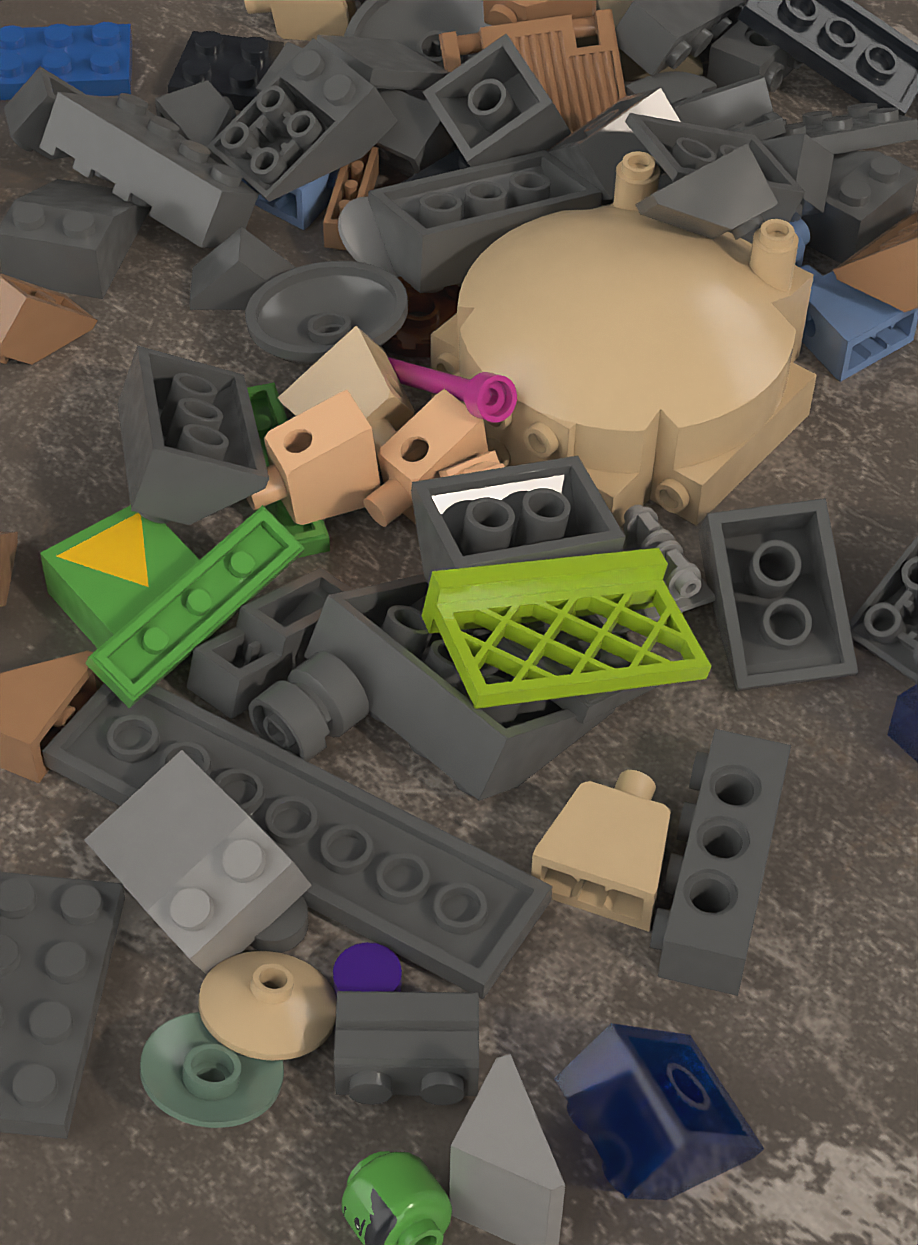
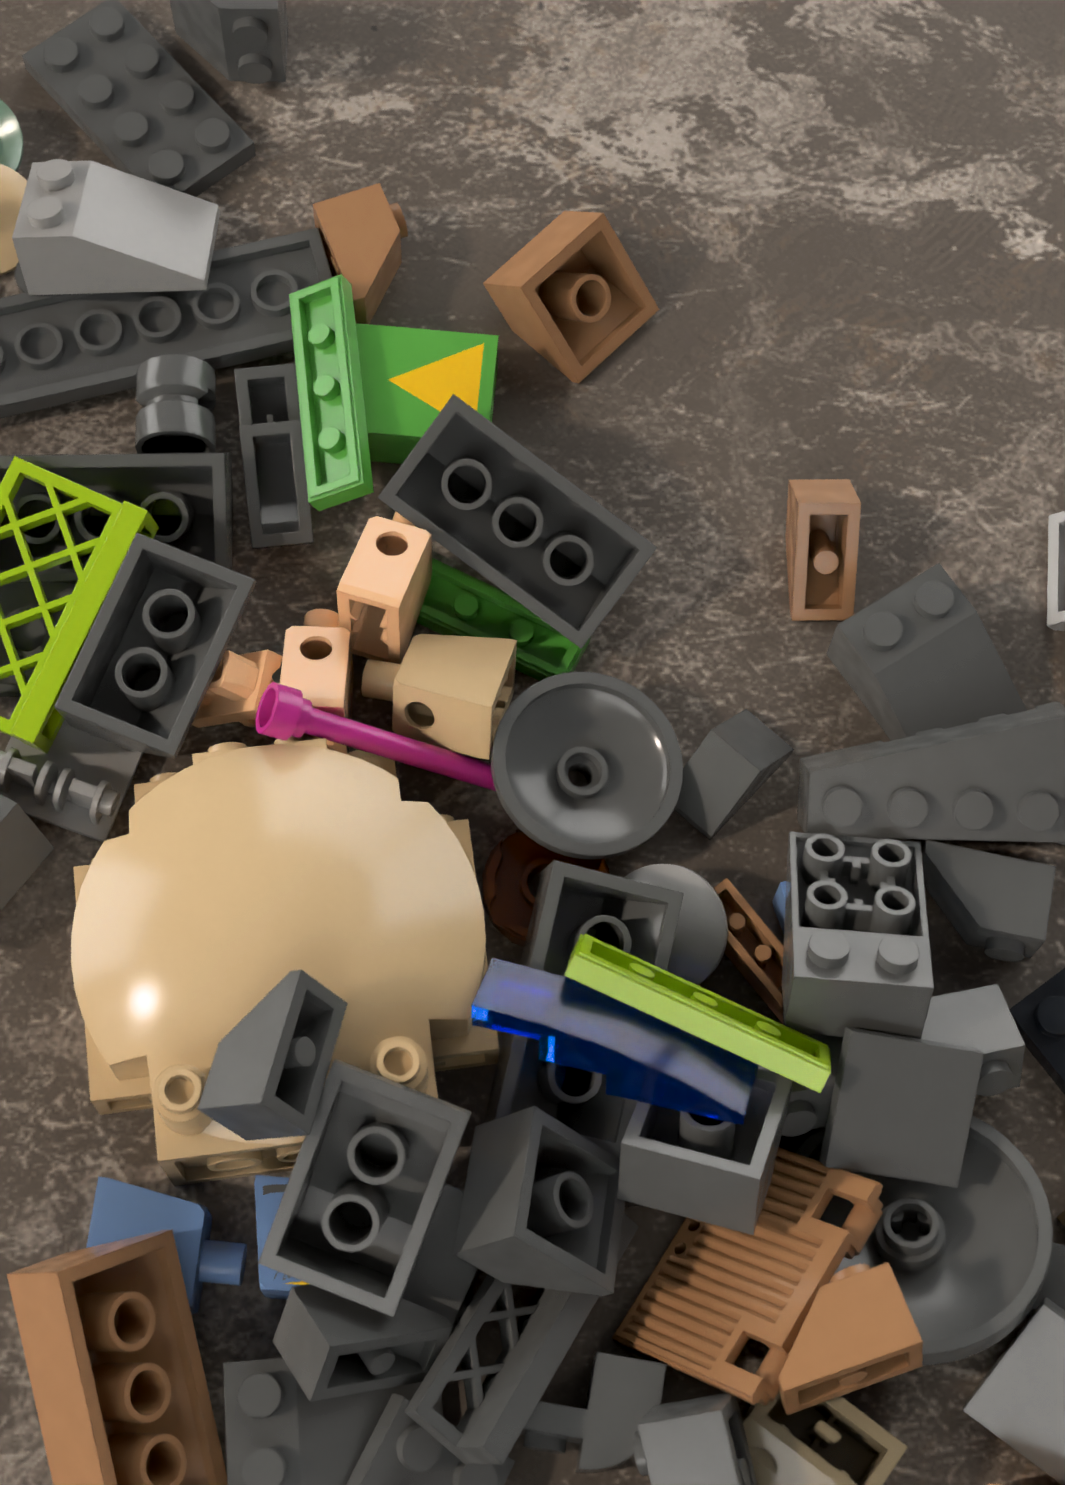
camera: 130 degrees right, 20 degrees up
(438, 132) = (700, 1012): none -> lime tile
(501, 147) = (600, 1034): none -> slope

